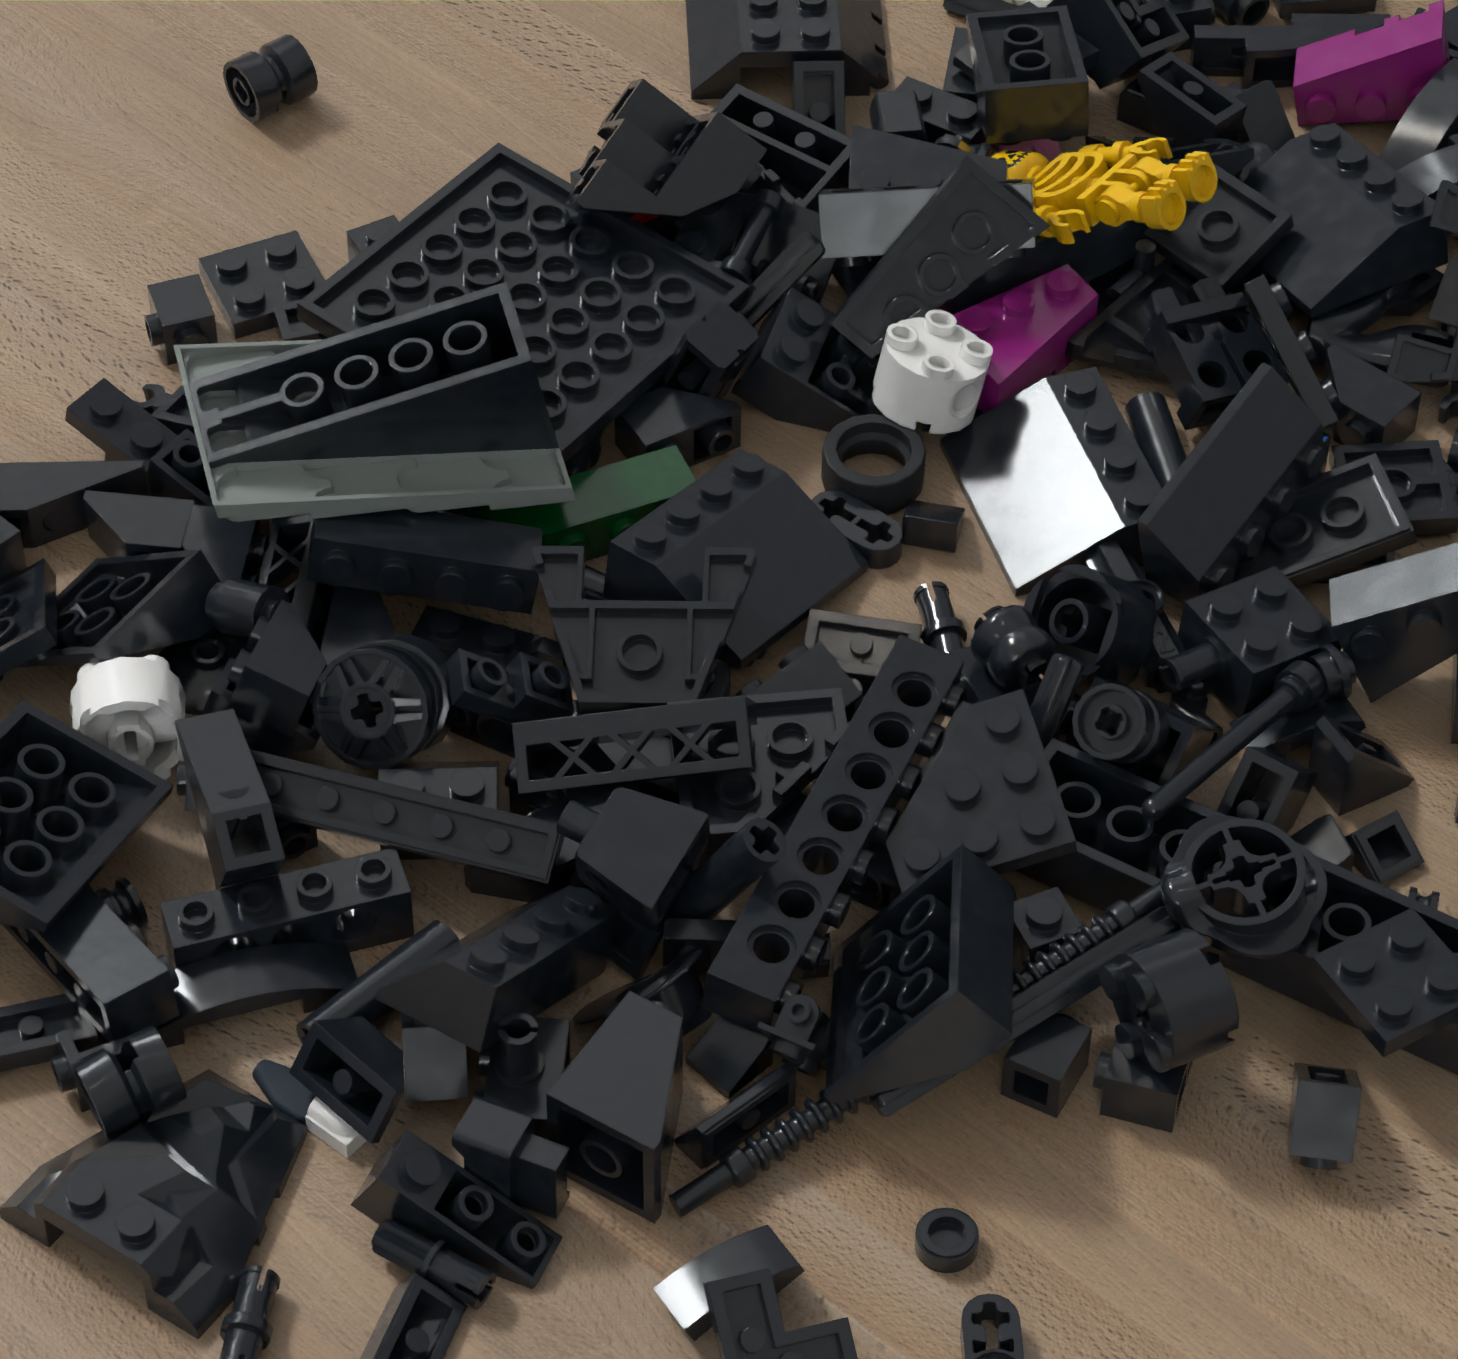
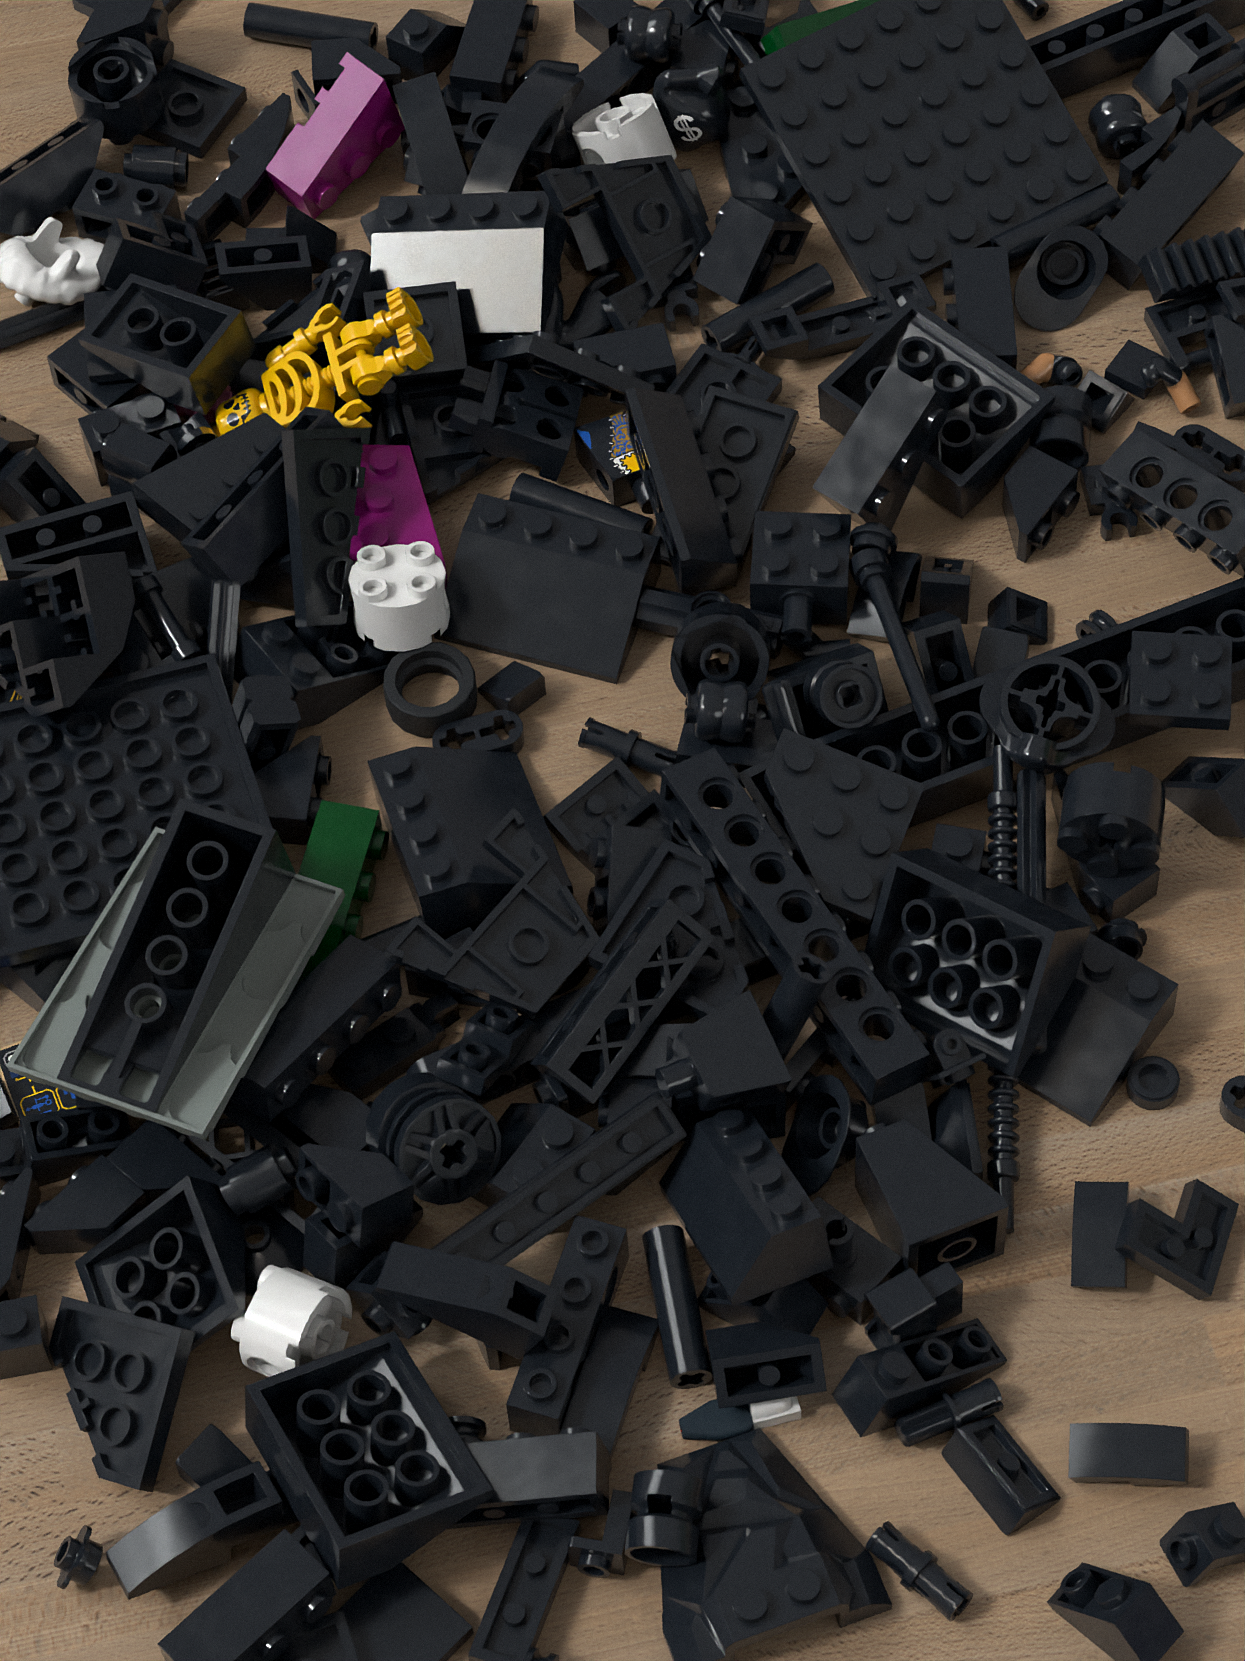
camera: 50 degrees left, 10 degrees up
(959, 1147) = (1099, 1031): none -> black slope
(1081, 1123) = (1125, 936): none -> black plate

